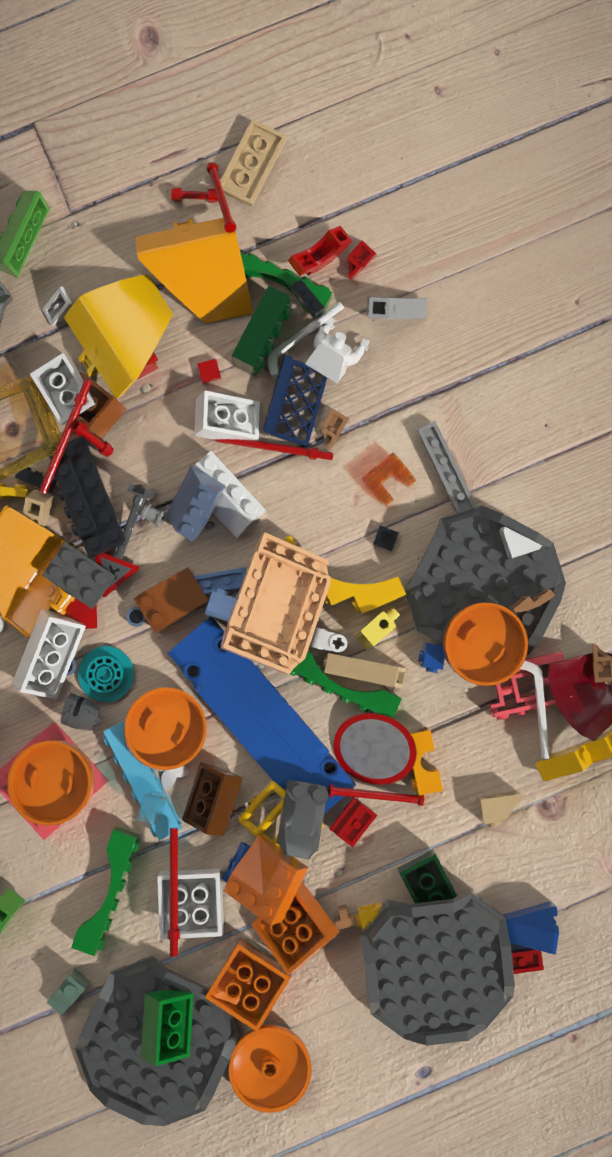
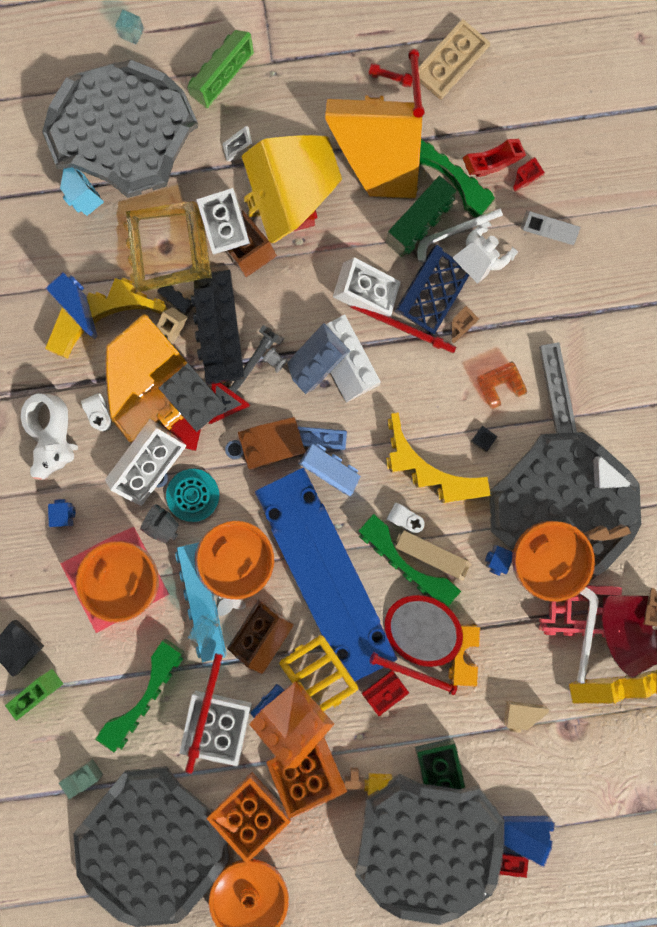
camera: 10 degrees right, 0 degrees up
(80, 400) = (237, 235): red bar -> none
(80, 429) = (245, 285): red bar -> none
(166, 1026) = (164, 836): green slope -> none
(209, 371) = (361, 240): red tile -> none
(277, 605) = (370, 473): light nougat slope -> none
(302, 818) = (340, 677): dark grey slope -> none
(307, 298) = (471, 197): black piece -> none
(373, 633) = (455, 520): light yellow torso -> none

